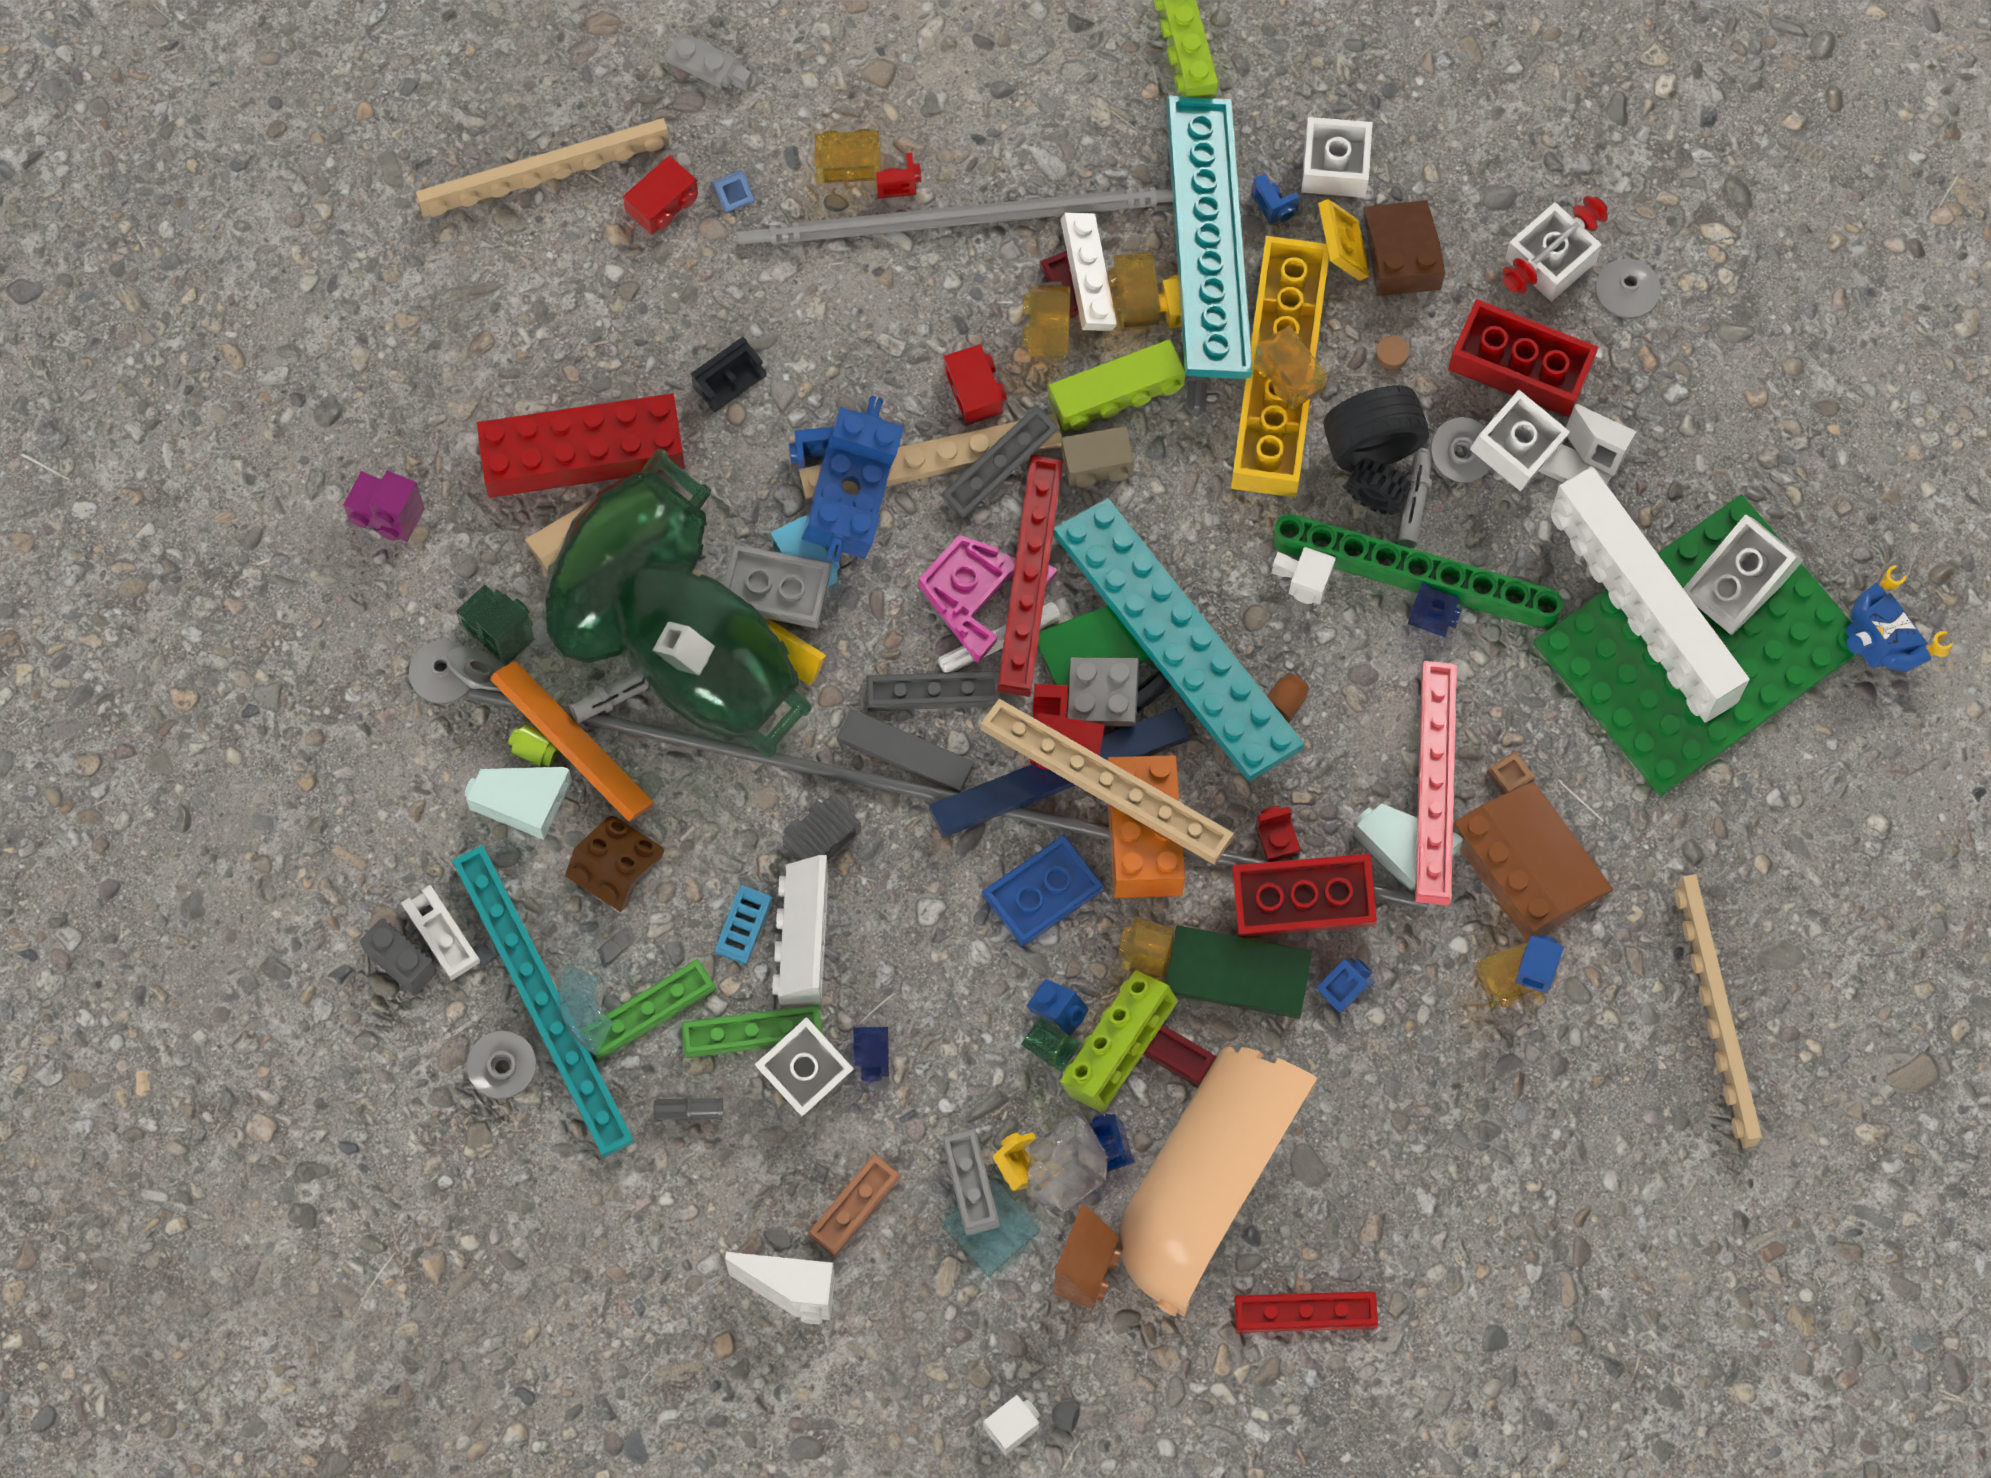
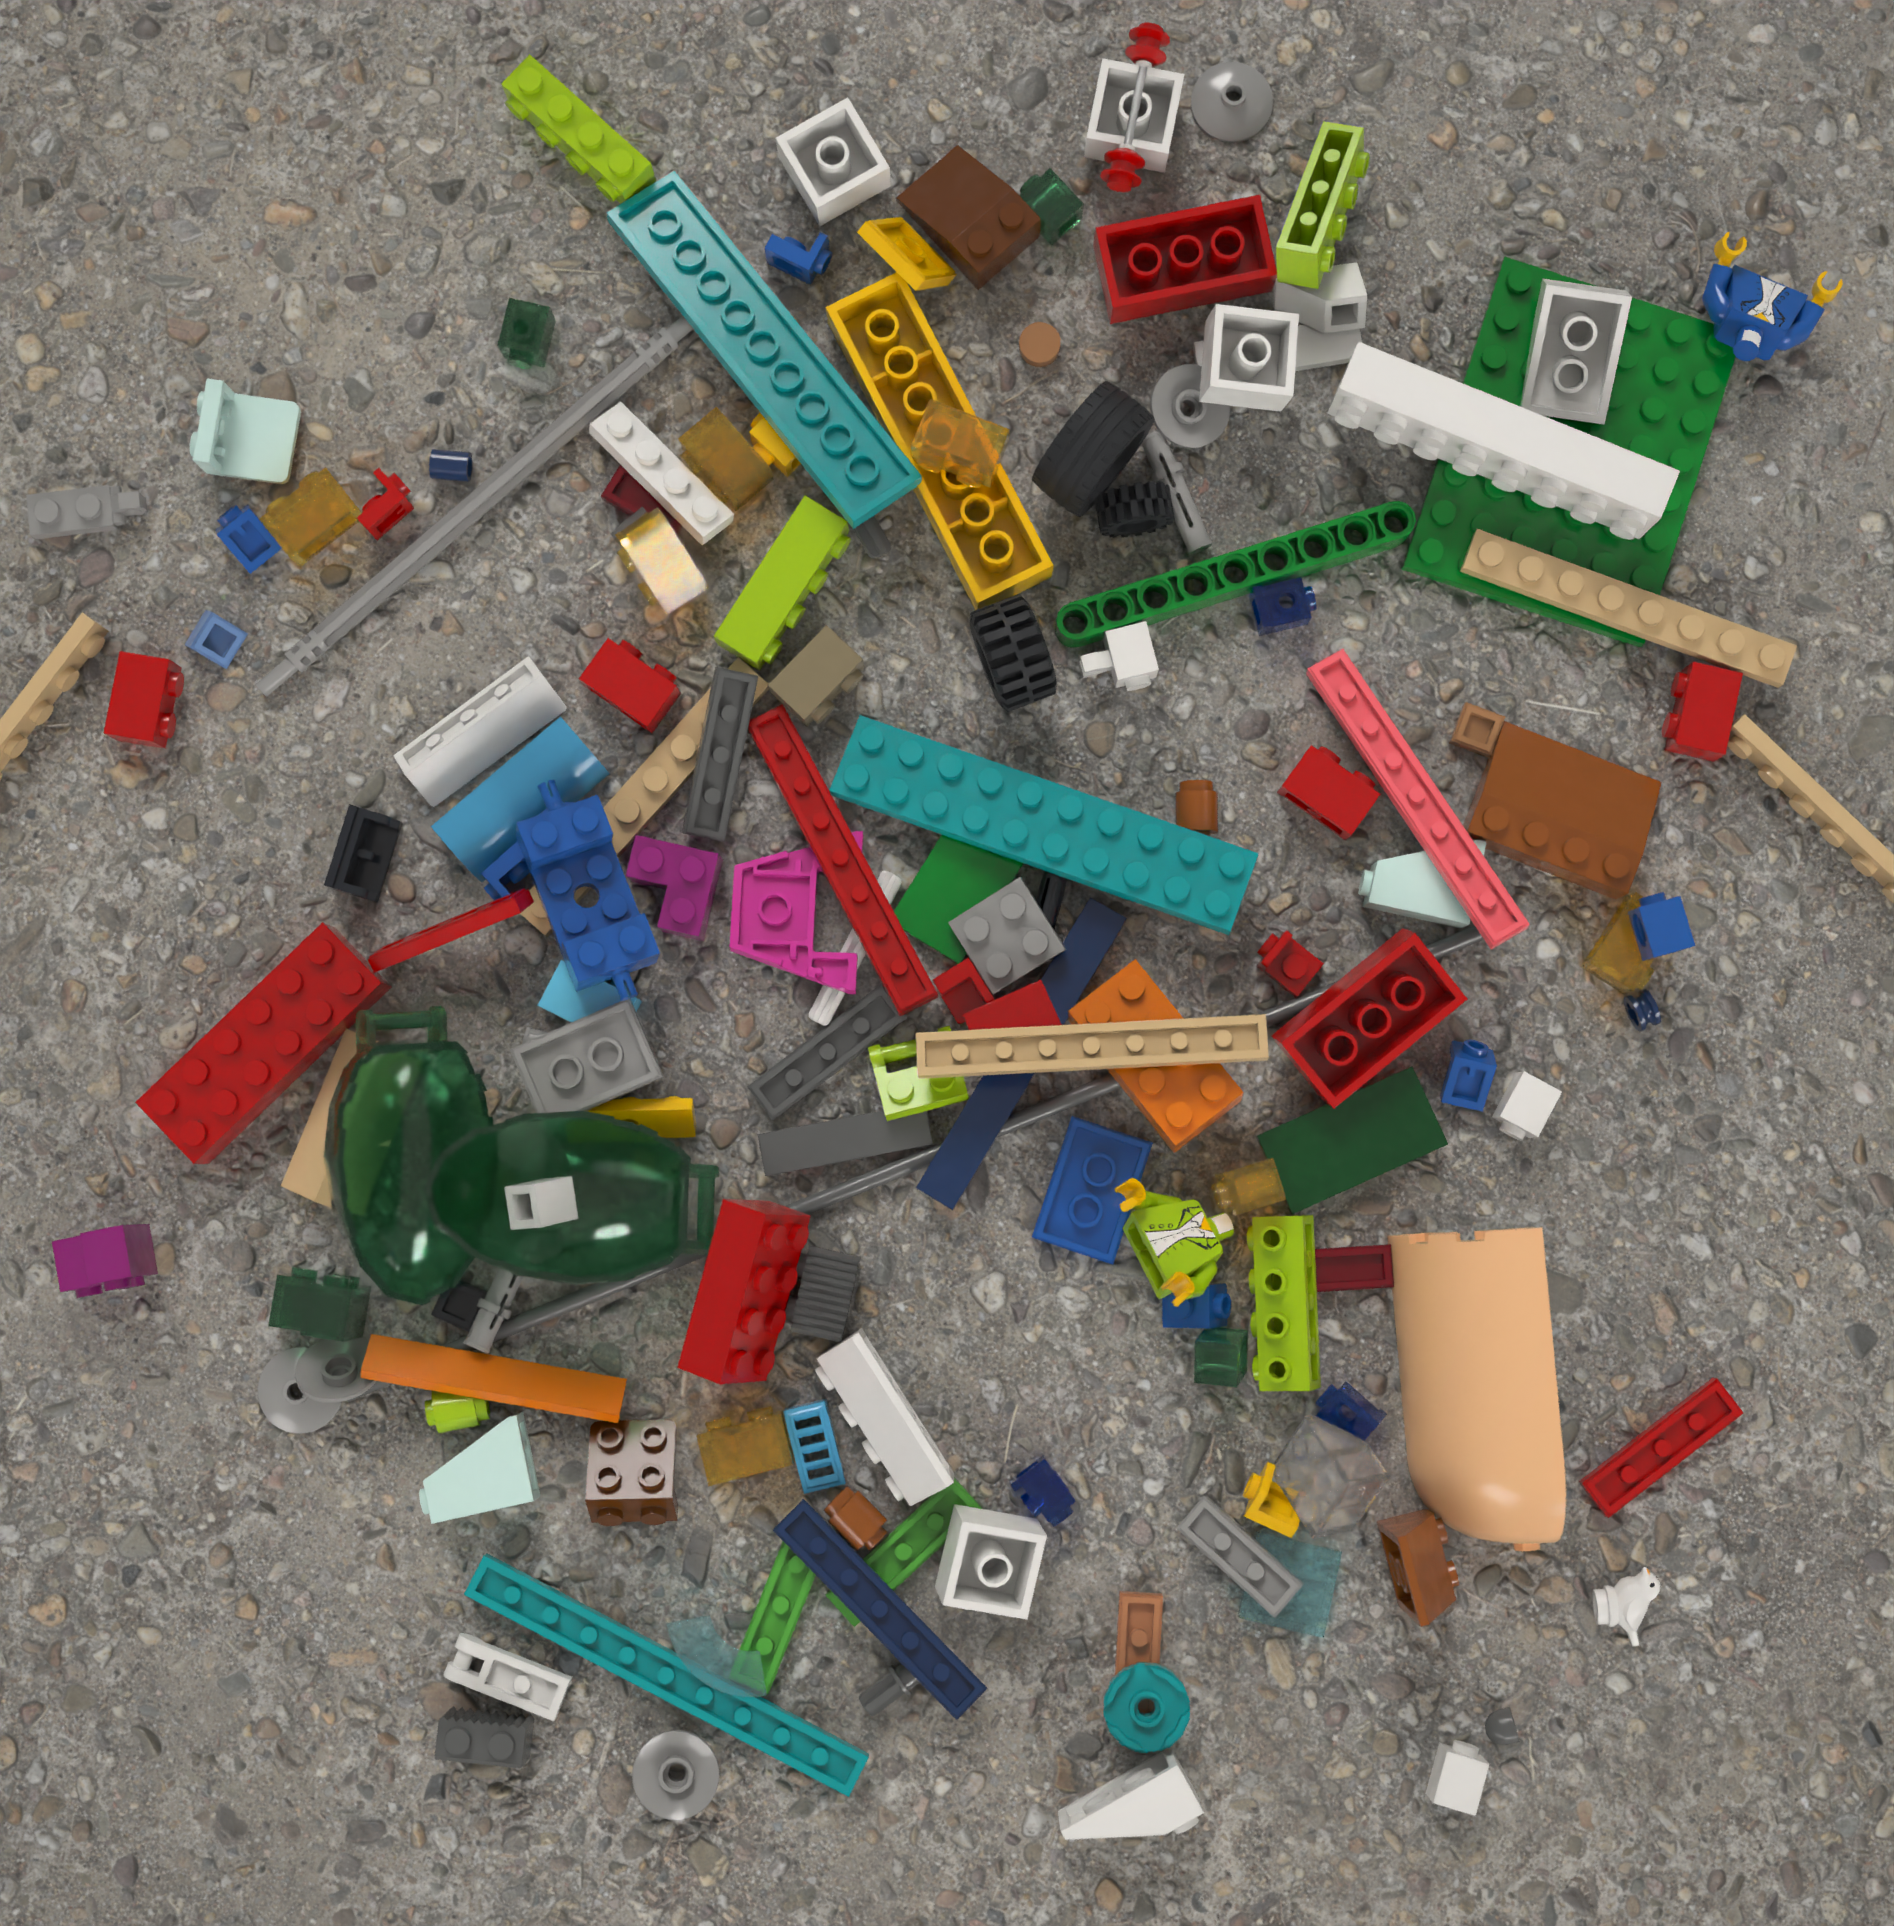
camera: 30 degrees left, 15 degrees up
(581, 683) = (459, 1305): none -> black tile
(698, 892) = (745, 1446): none -> clear yellow brick
(710, 1050) = (880, 1609): none -> dark blue tile
(736, 986) = (856, 1518): none -> dark orange brick
(750, 451) = (451, 929): none -> red tile
(772, 787) = (744, 1291): none -> red brick
(798, 142) = (246, 537): none -> blue bracket
(817, 401) = (486, 819): none -> dark azure brick
(838, 1213) = (1146, 1730): none -> teal plate
(842, 81) = (244, 435): none -> light aqua bracket
(857, 352) = (480, 732): none -> white panel
(920, 524) = (686, 875): none -> magenta brick
(958, 182) = (450, 465): none -> dark blue hinge
(974, 746) = (903, 1092): none -> lime plate
(1064, 135) = (526, 333): none -> clear green brick
(1073, 947) = (1173, 1240): none -> lime torso
(1208, 1391) = (1626, 1602): none -> white animal
(1233, 519) = (1013, 653): none -> black tyre
(1371, 1027) = (1525, 1106): none -> white brick
(1382, 745) = (1329, 791): none -> red brick
(1461, 273) = (1053, 204): none -> clear green brick
(1494, 1020) = (1642, 1010): none -> dark blue bush
(1635, 378) = (1321, 205): none -> lime brick
(1665, 760) = (1628, 608): none -> tan plate
(1671, 858) = (1702, 711): none -> red brick

